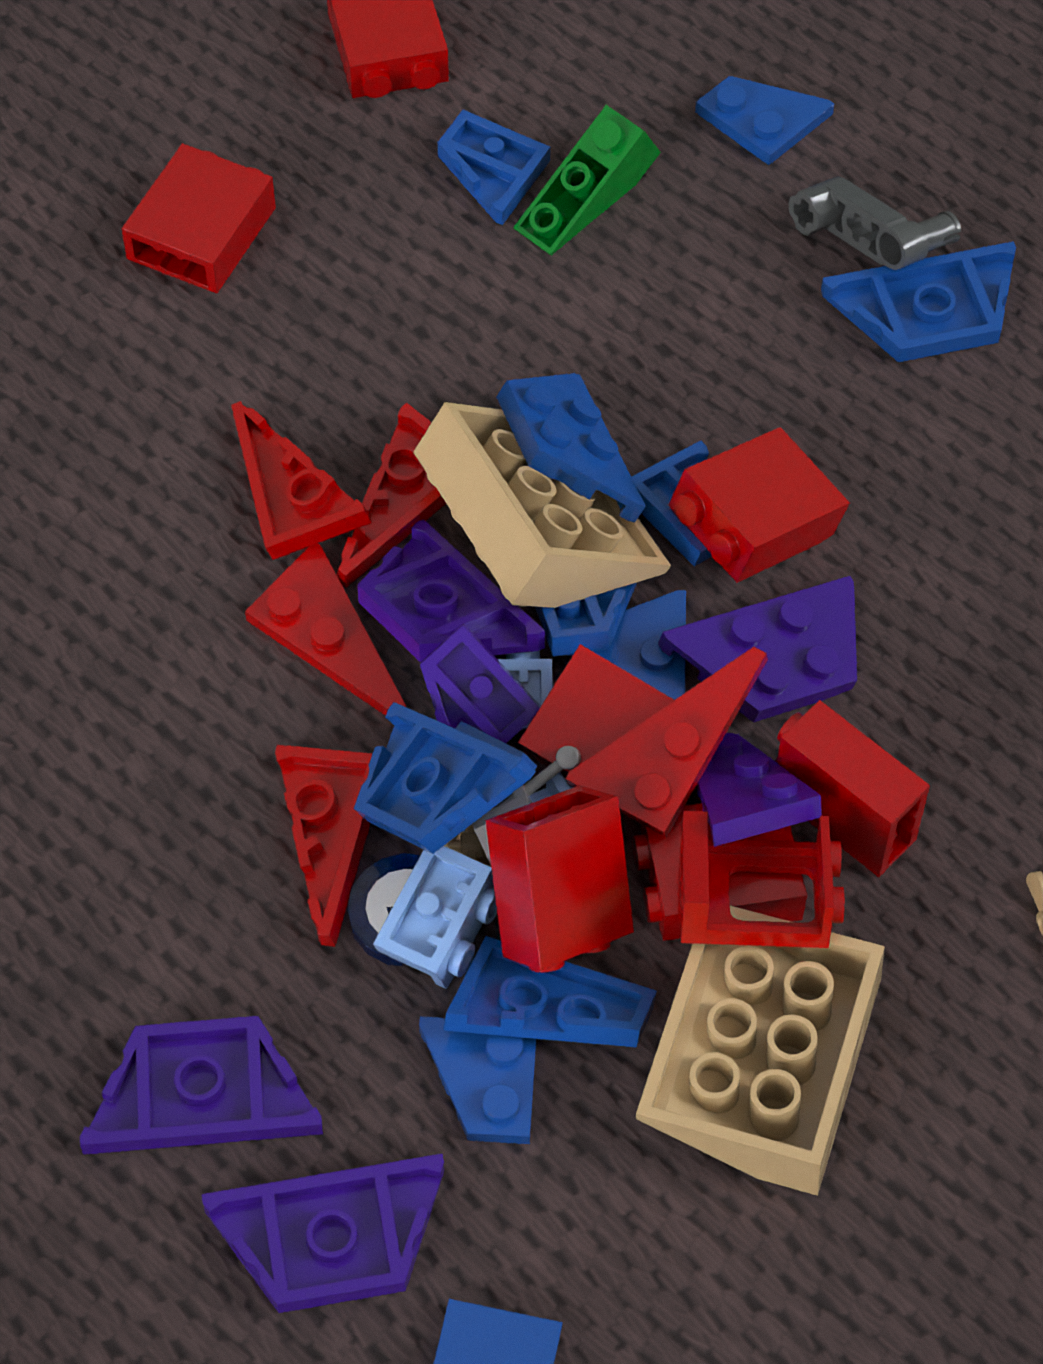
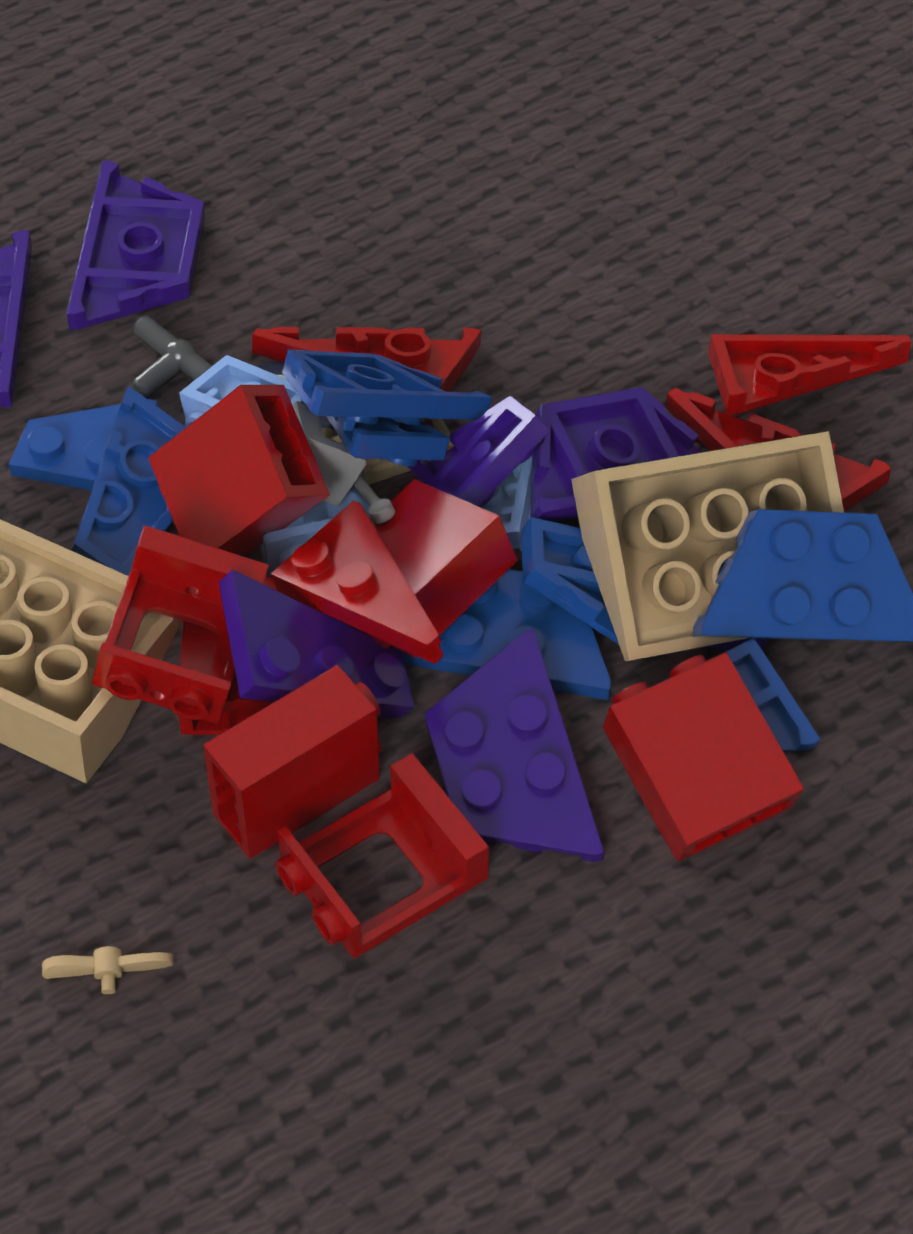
camera: 100 degrees right, 5 degrees down
(318, 623) = (631, 362): red wing -> none
(351, 1015) = (176, 357): none -> dark grey piece
(882, 687) = (424, 828): none -> red window

